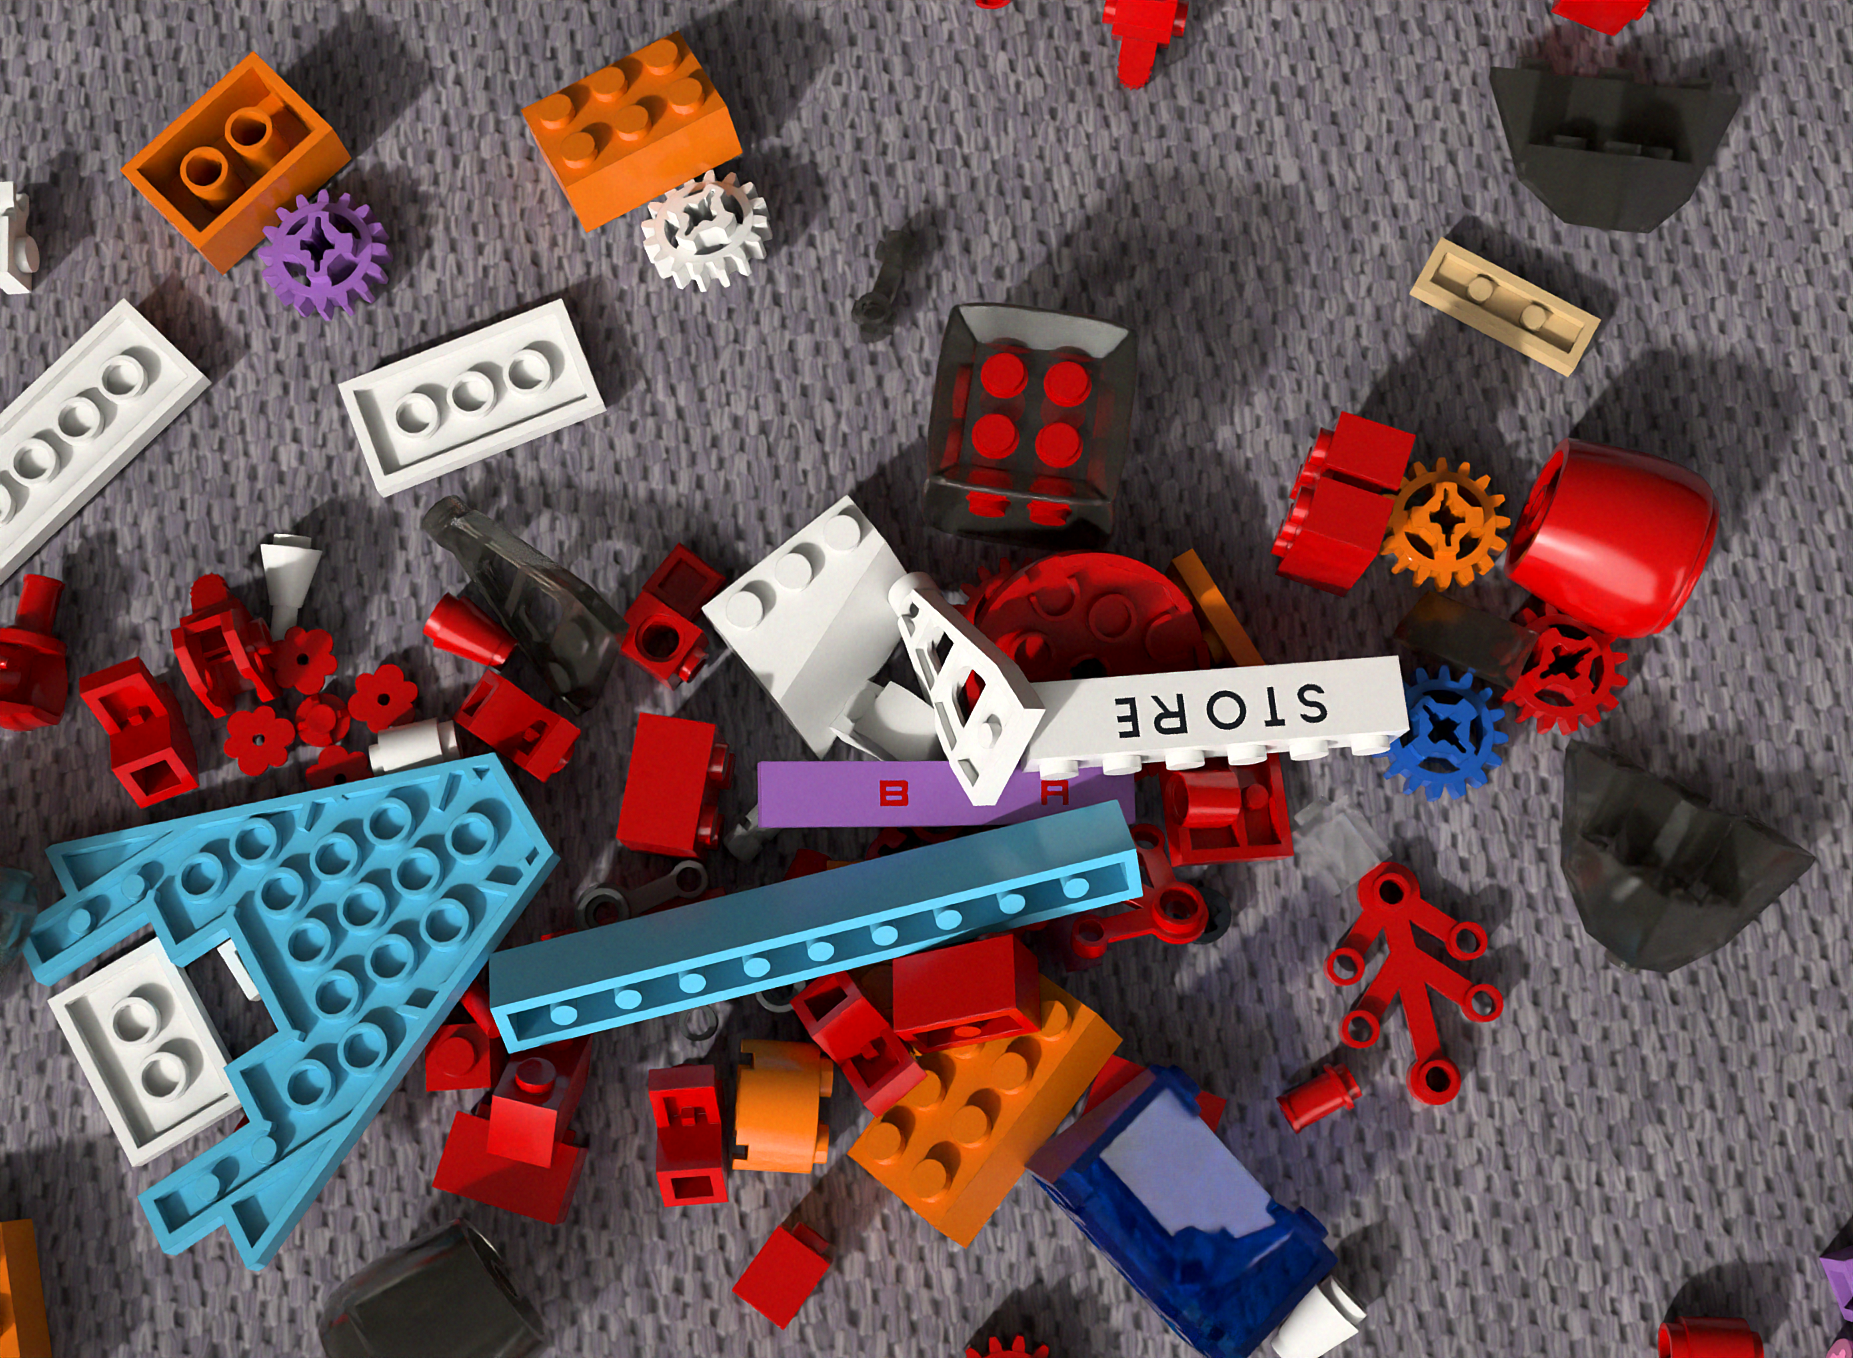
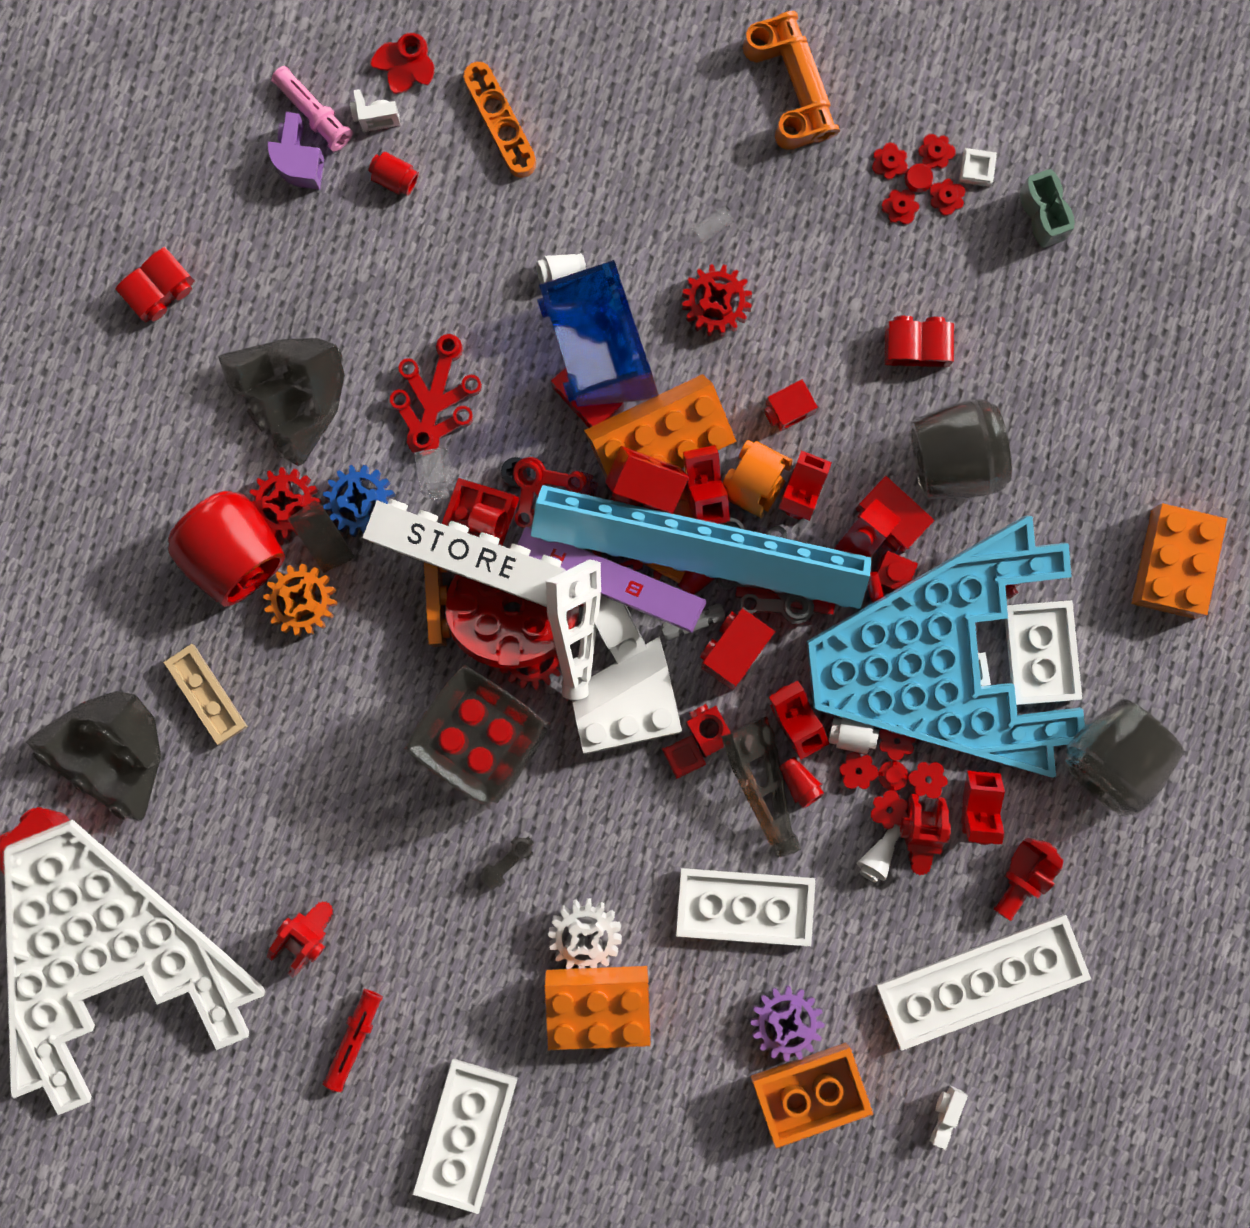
camera: 155 degrees left, 5 degrees up
(1319, 1097) = (506, 364): red pin -> none
(1337, 507) = (336, 637): red piece -> none

